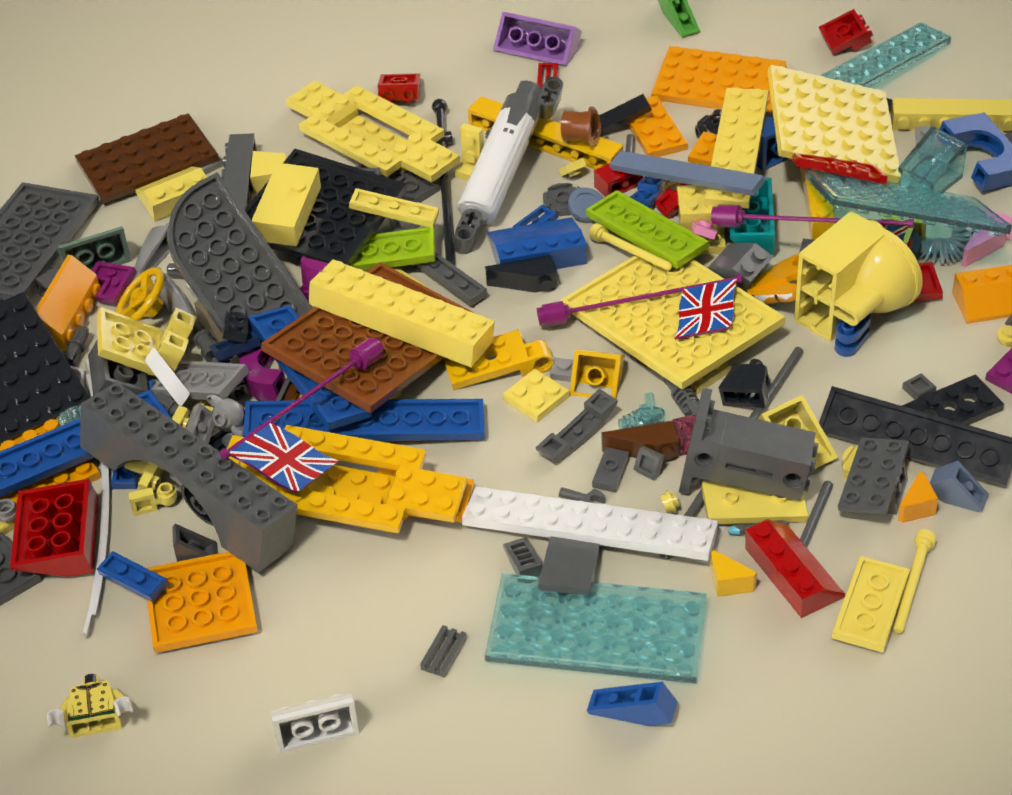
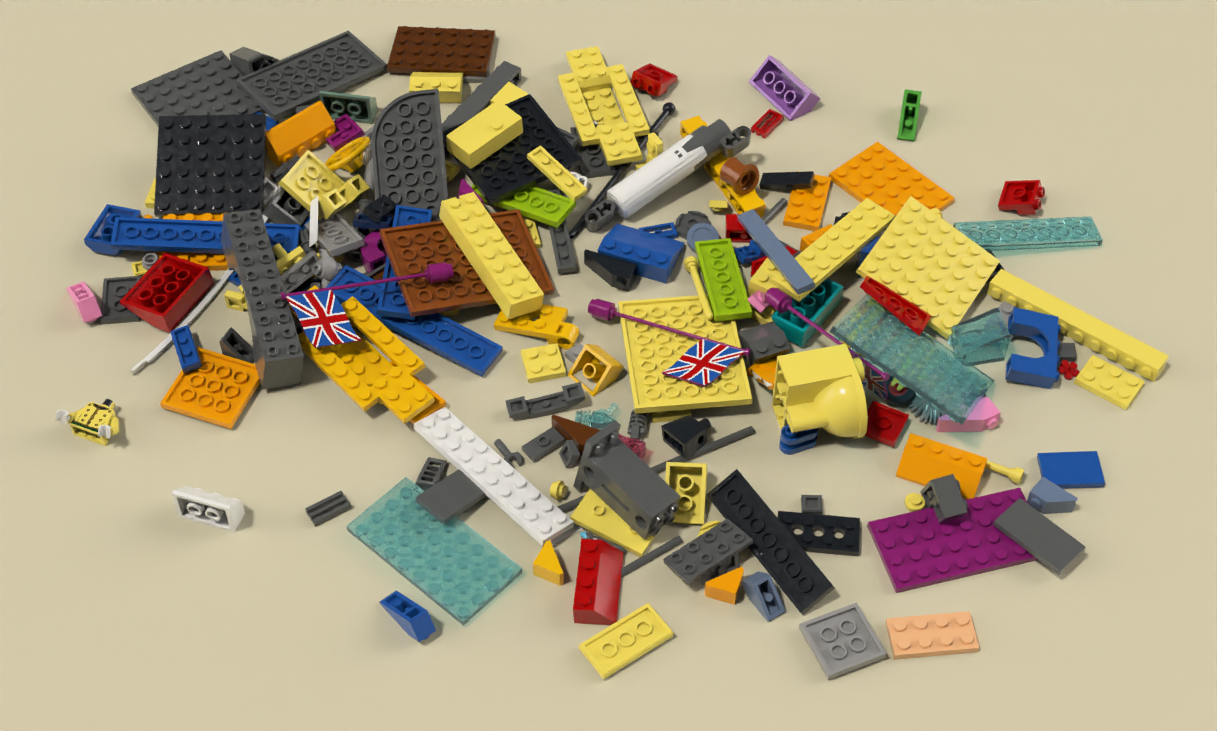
camera: 30 degrees right, 5 degrees up
(924, 542) = (703, 619): light yellow piece -> none

